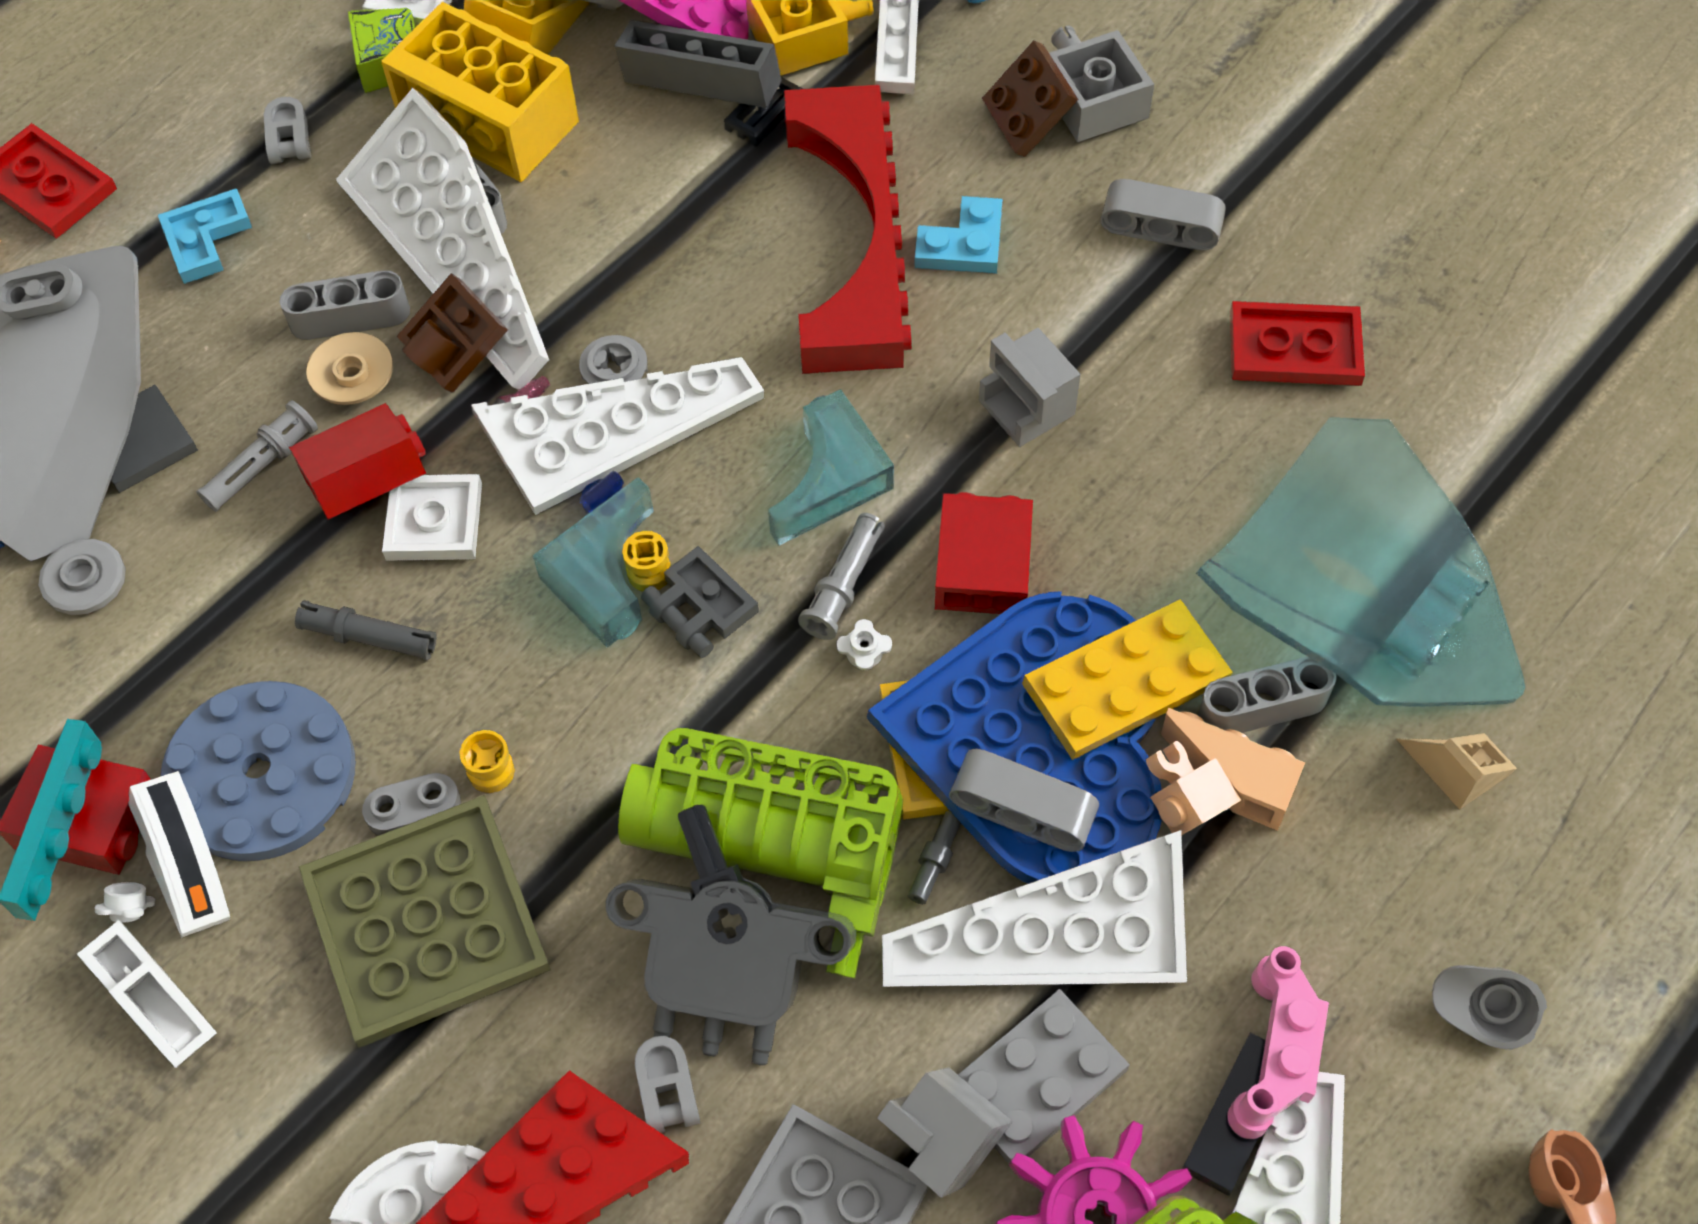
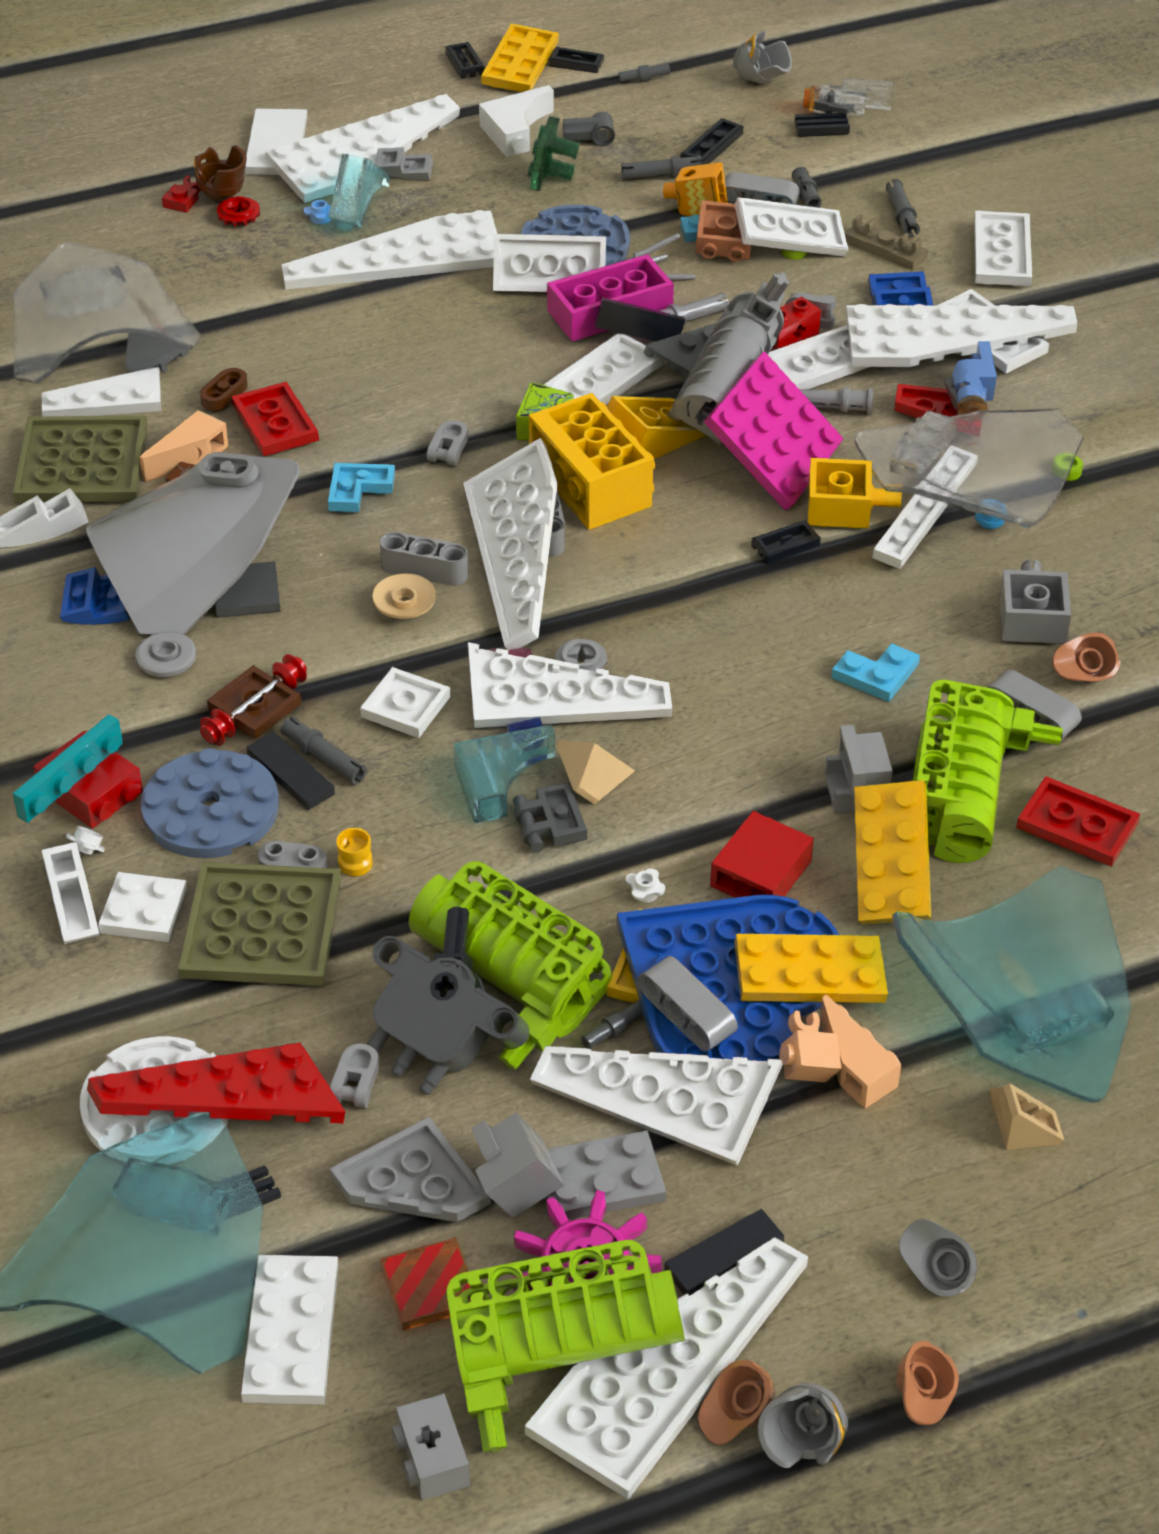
camera: 25 degrees right, 15 degrees down
(178, 853) = (133, 821): white slope -> none
(216, 492) = (328, 622): light grey pin -> none
(237, 598) = (254, 701): none -> reddish brown plate
(252, 963) = (143, 907): none -> white plate
(338, 676) = (291, 771): none -> black tile
(359, 459) = (376, 648): red brick -> none
(451, 333) = (481, 598): reddish brown plate -> none
(646, 560) = (528, 775): yellow wheel -> none
(698, 63) = (751, 493): dark grey brick -> none
(713, 515) = (592, 769): none -> tan slope
(835, 591) = (645, 845): light grey pin -> none
(843, 472) = (691, 779): clear light blue arch -> none
(864, 319) = (772, 692): red arch -> none
(1029, 98) = (977, 596): reddish brown plate -> none
(1137, 481) = (892, 851): none -> yellow plate
(1144, 333) = (968, 763): none -> lime piece
(1192, 131) = (1087, 658): none -> nougat piece
(1281, 682) = (907, 1021): light grey beam -> none
(1290, 1048) = (776, 1224): bright pink plate -> none

